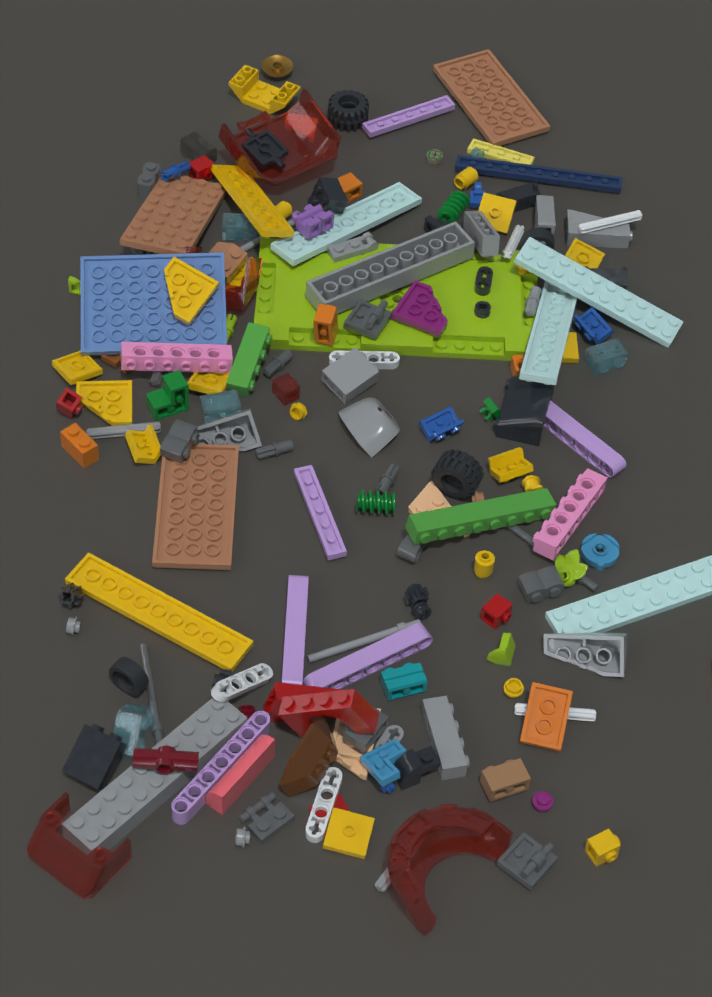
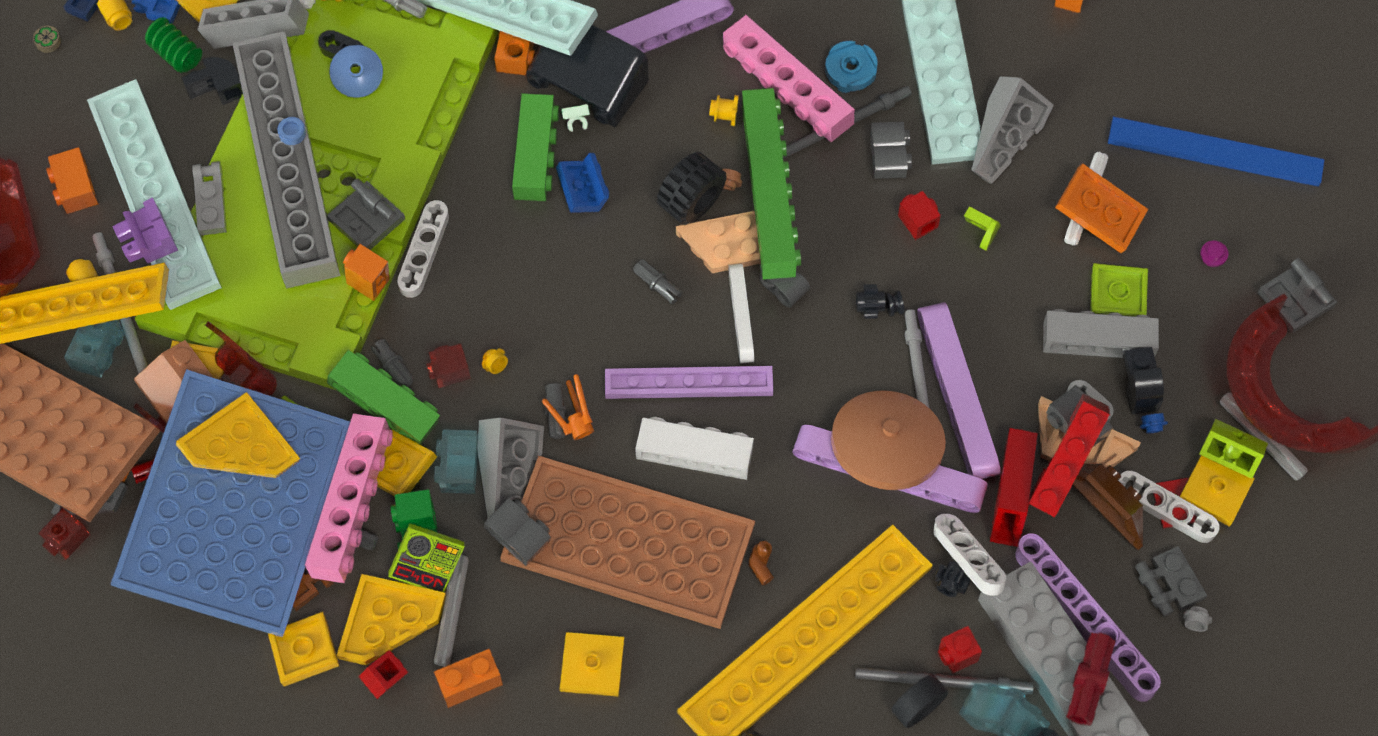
camera: 70 degrees left, 15 degrees up
(74, 285) = (130, 613): lime tile -> none
(108, 507) = (592, 664): none -> yellow plate
(111, 245) = (63, 534): none -> clear red brick
(144, 445) = (495, 585): yellow bracket -> none
(147, 402) = (426, 558): none -> tile
(173, 695) = (959, 650): none -> red brick
(205, 576) = (758, 561): none -> dark orange arm
(241, 774) = (1109, 590): coral brick -> none
(247, 710) = (1008, 561): dark red plate -> none
(267, 460) = (580, 422): none -> orange plant
(273, 524) = (694, 447): none -> white brick
(311, 621) = (888, 440): none -> nougat dish
(329, 195) = (99, 197): black brick -> none
(350, 375) = (458, 272): light grey brick -> none
(368, 425) = (549, 277): light grey piece -> none
(376, 502) = (696, 304): green piece -> none
(377, 529) = (741, 313): none -> white beam
(379, 831) = (1233, 448): none -> lime brick
(380, 761) = (1133, 420): dark azure plate -> none
(403, 681) = (1002, 358): teal brick -> none
(404, 261) = (291, 131): none -> medium blue tile
(421, 310) = (371, 144): magenta plate -> none
(458, 394) = (533, 147): none -> bright green brick
(471, 295) = (357, 84): none -> medium blue dish
(482, 309) = (390, 70): black bush -> none
(484, 564) = (842, 204): yellow brick -> none
(486, 746) = (1118, 290): none -> lime tile
(505, 779) = (1182, 283): medium nougat brick -> none
(509, 465) = (683, 124): yellow bracket -> none
(513, 688) = (1039, 233): yellow plate -> none
(570, 567) = (877, 104): lime plate -> none
(603, 847) = (1296, 208): yellow brick -> none
(632, 791) = (1216, 151): none -> blue tile

